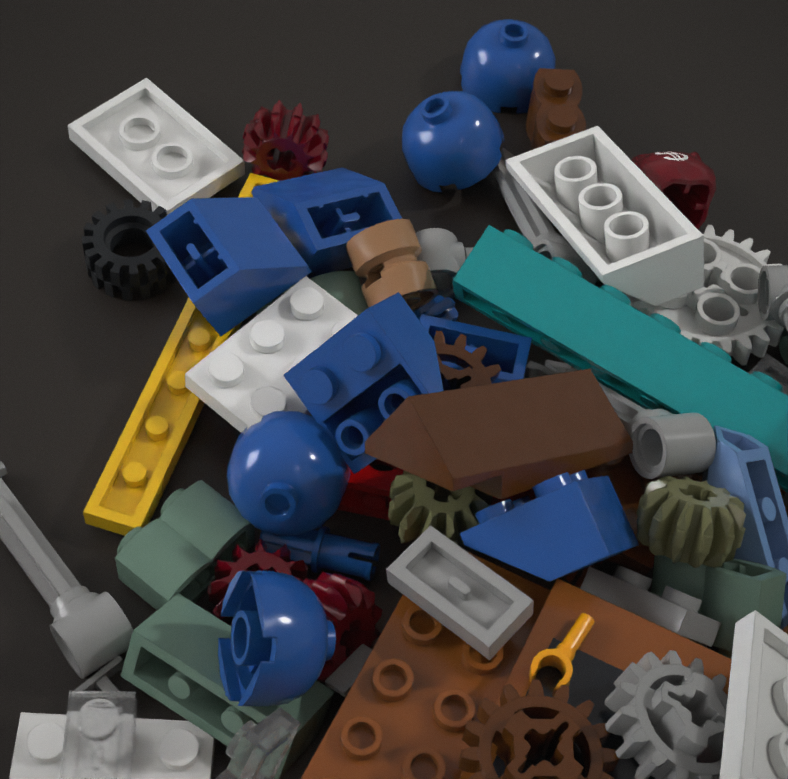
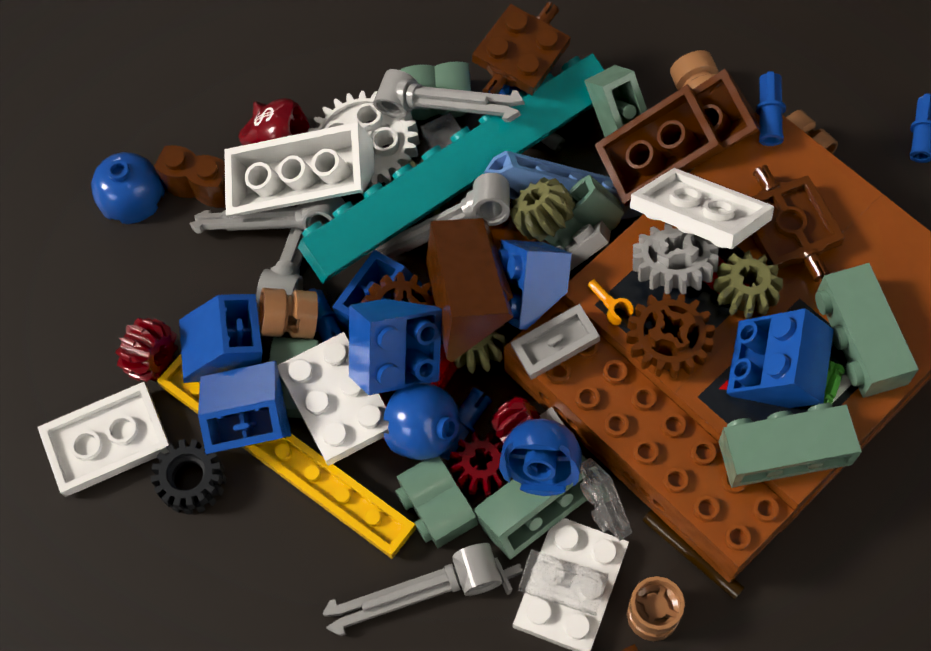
camera: 60 degrees left, 10 degrees up
(451, 141) = (186, 244): blue cylinder -> none

